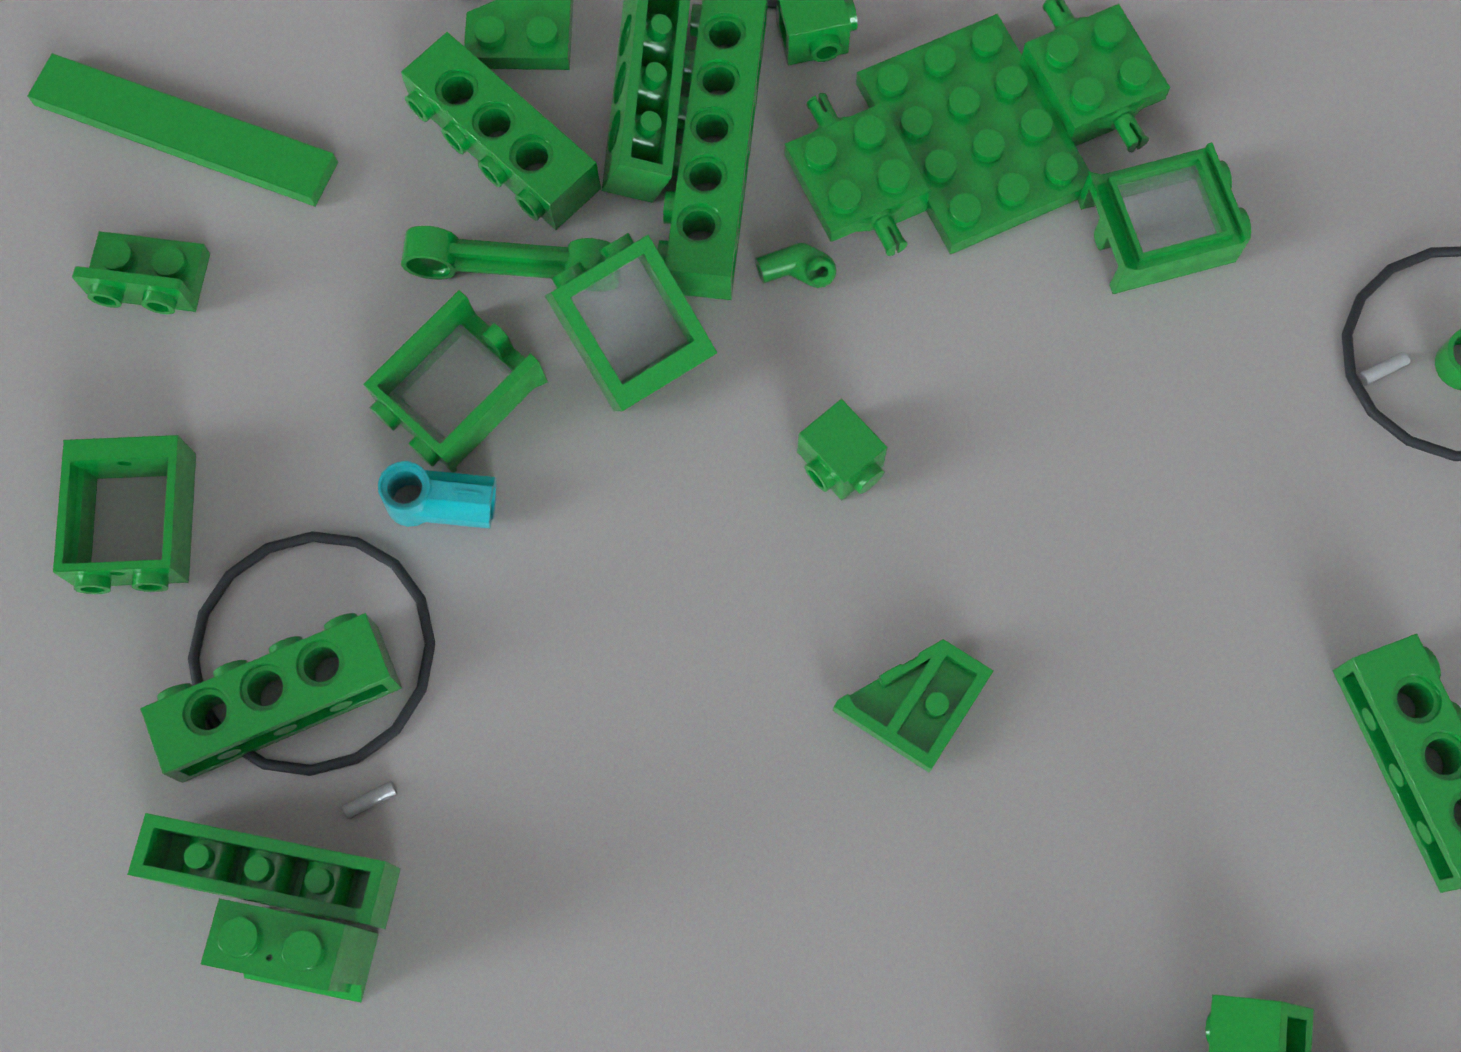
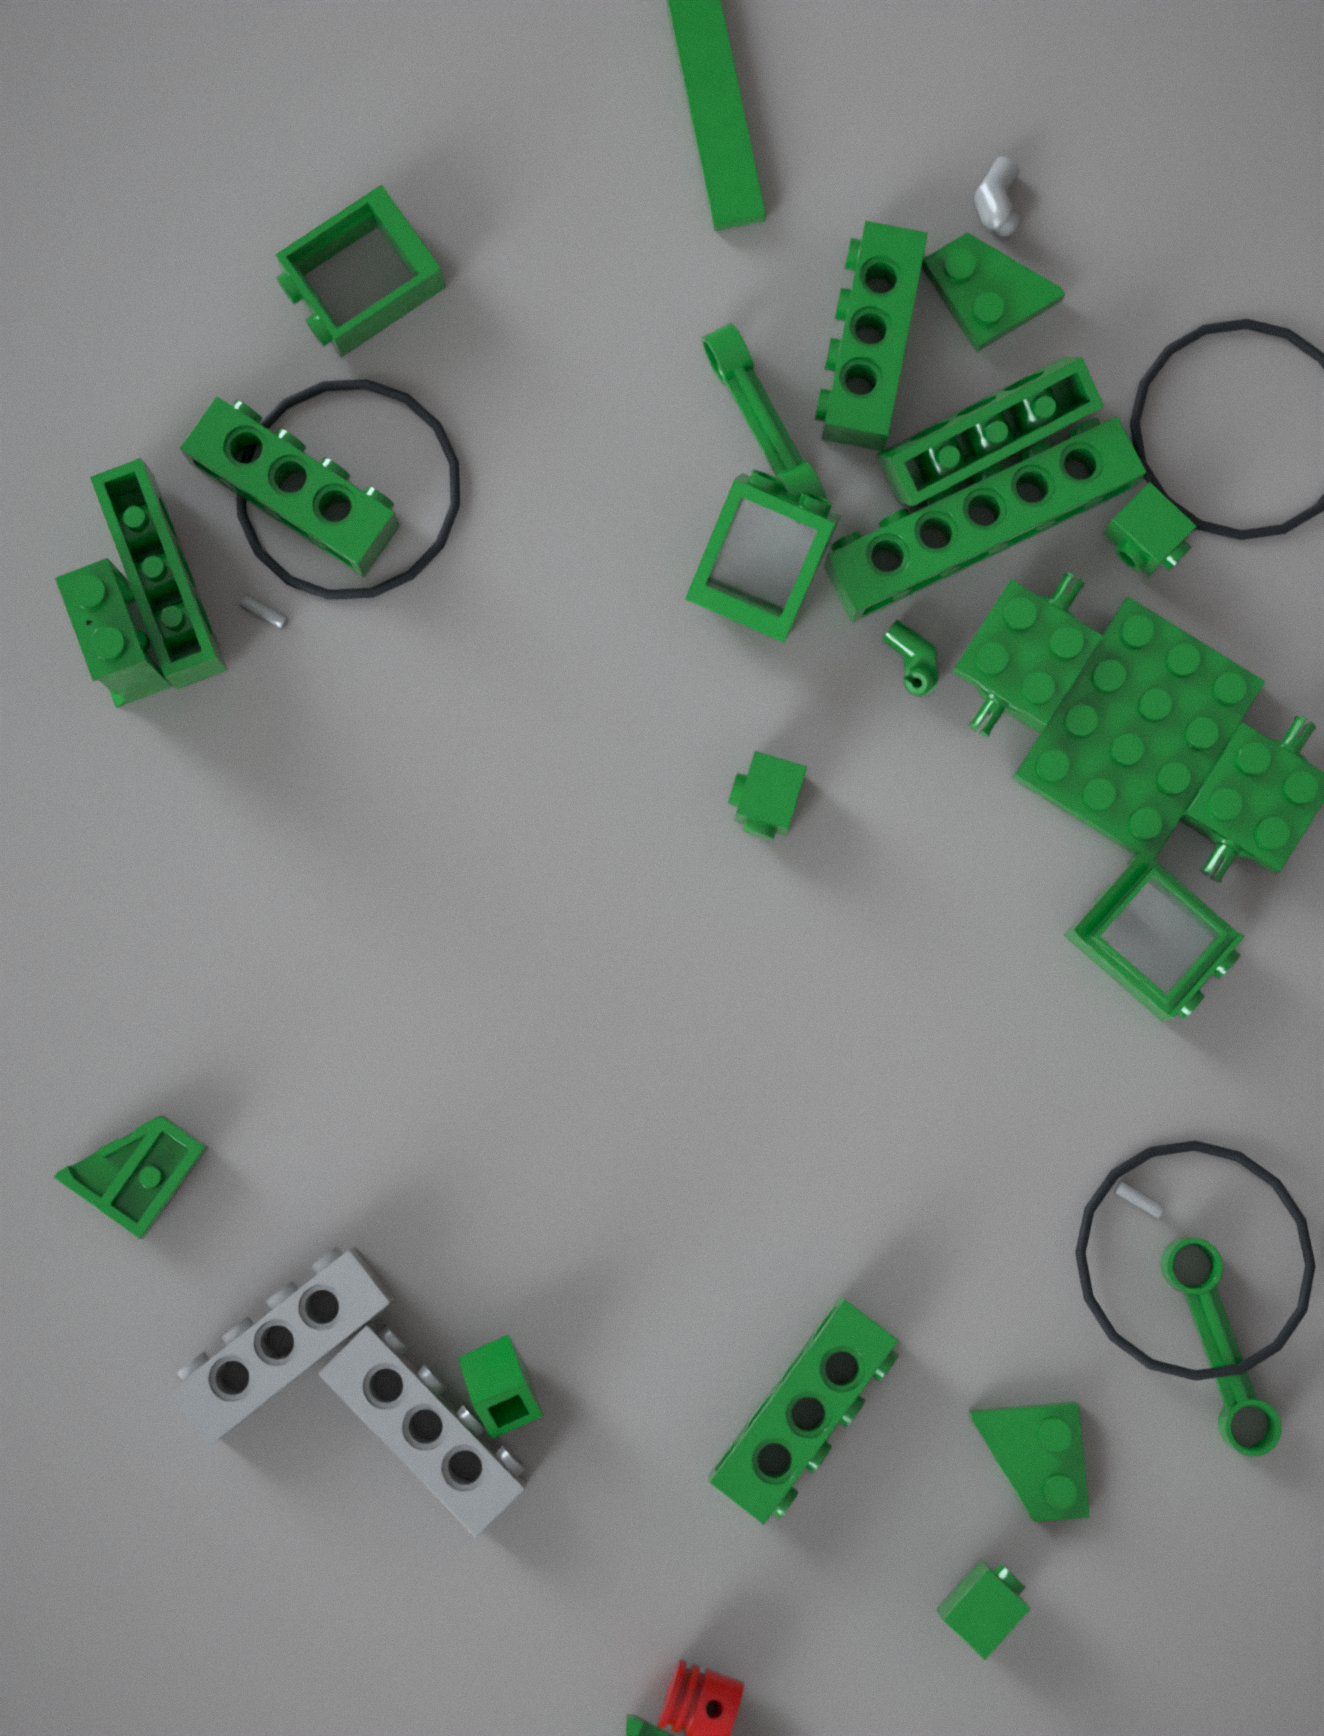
camera: 55 degrees right, 10 degrees up
(144, 272) = (567, 137): green bracket -> none
(443, 498) = (528, 505): teal piece -> none
(452, 383) = (627, 449): window -> none
(918, 702) = (600, 981): green wing -> none

